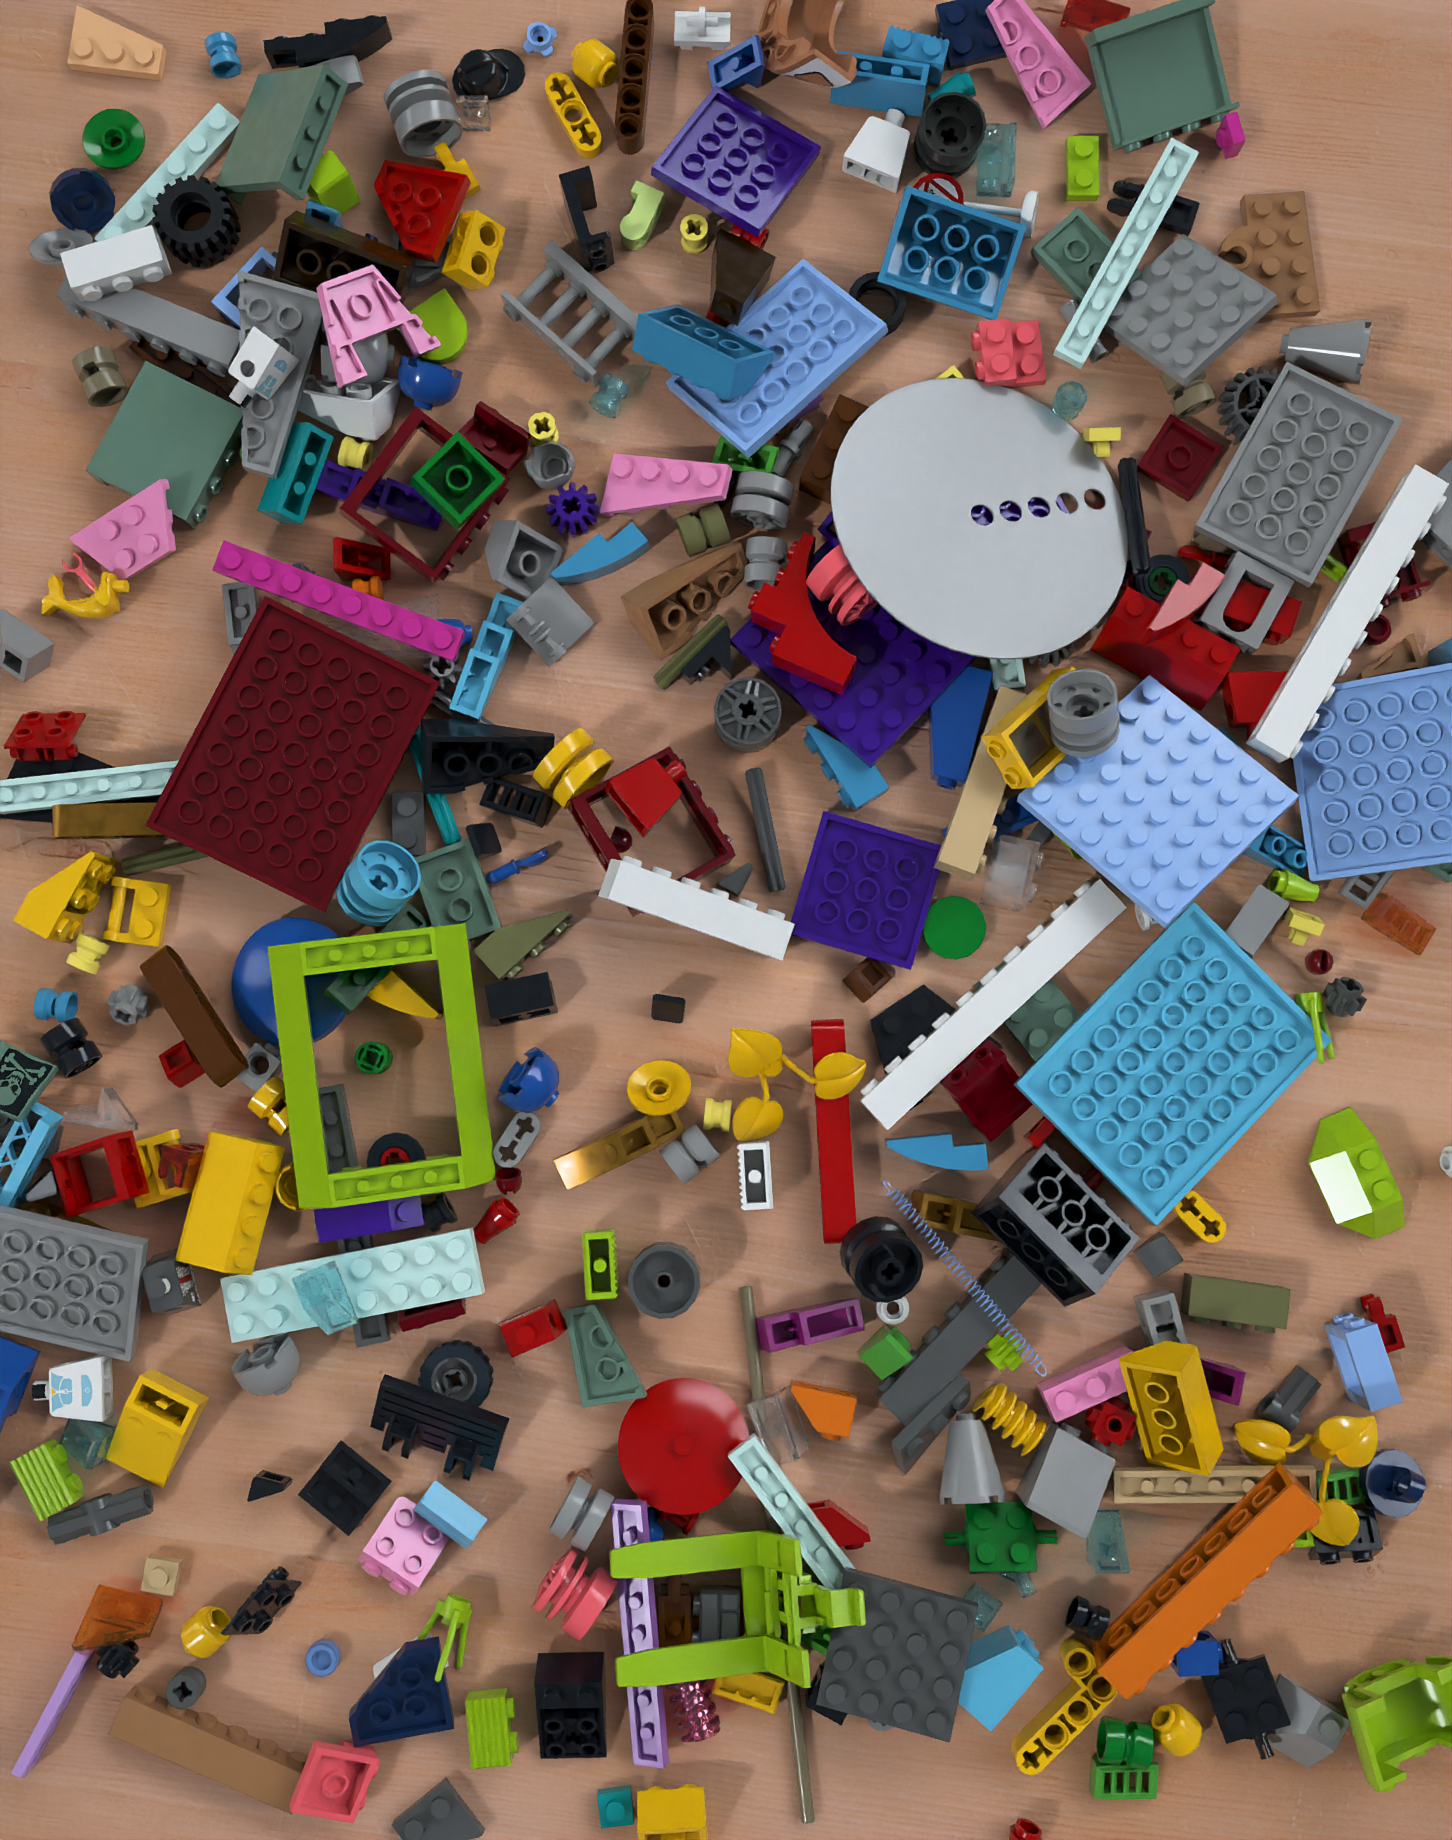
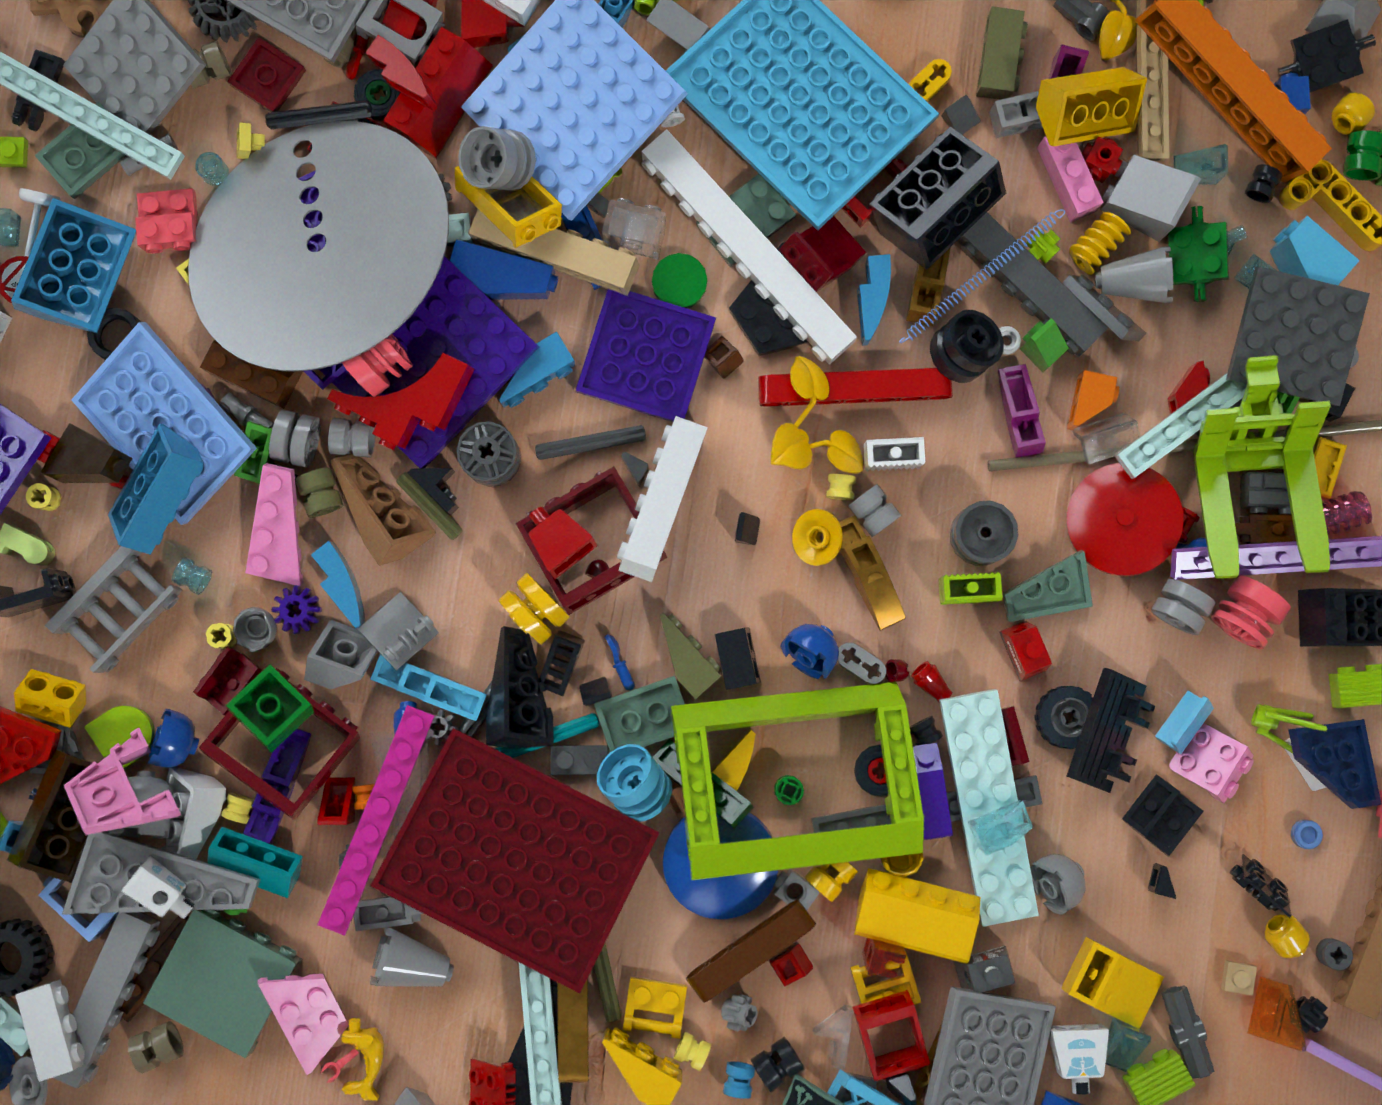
camera: 95 degrees left, 0 degrees up
(185, 642) = (409, 963): none -> light grey cone

